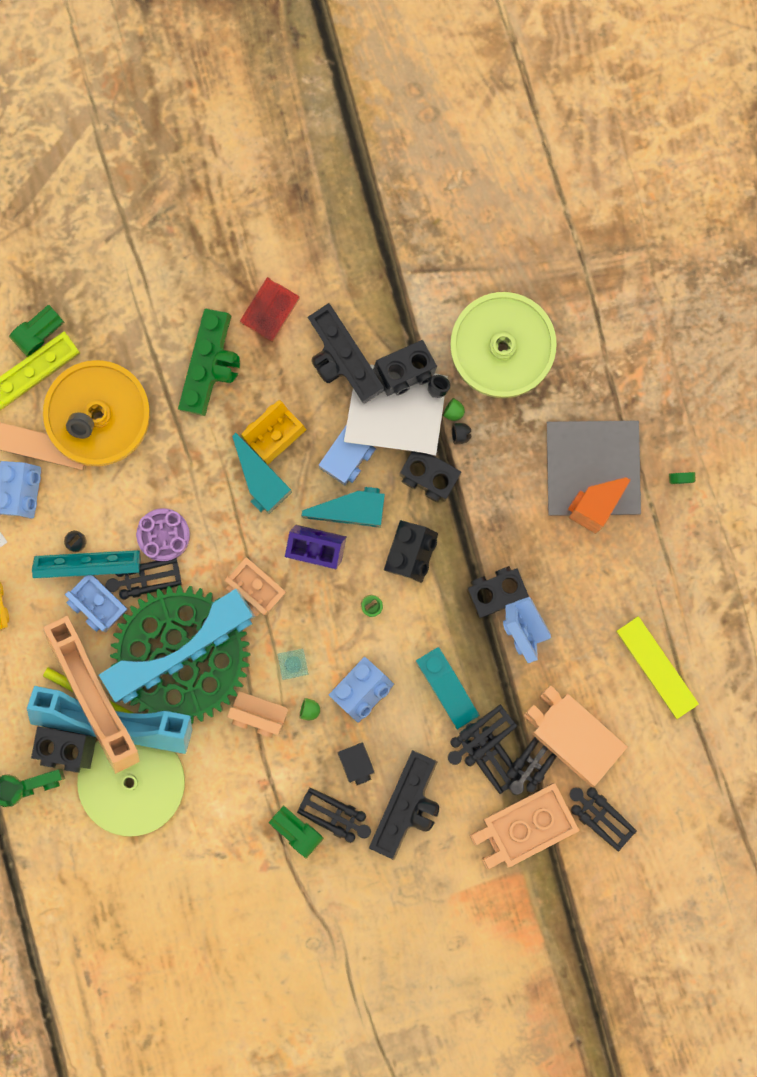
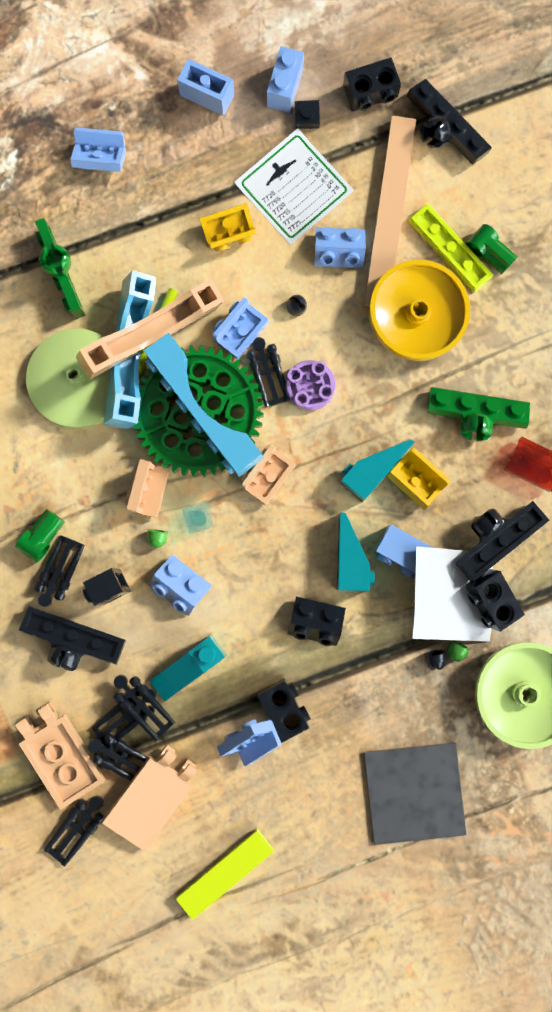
camera: 85 degrees right, 0 degrees up
(64, 743) = (98, 310): black brick -> none
(80, 425) = (406, 295): dark grey tile -> none
(86, 564) = (275, 316): teal tile -> none
(315, 546) = (311, 528): dark purple brick -> none
(375, 609) = (257, 591): bright green hinge -> none
(433, 468) = (399, 636): black brick -> none
(438, 386) = (480, 634): black hinge -> none
(596, 504) = (378, 808): orange slope -> none
(682, 478) = (414, 885): green tile -> none

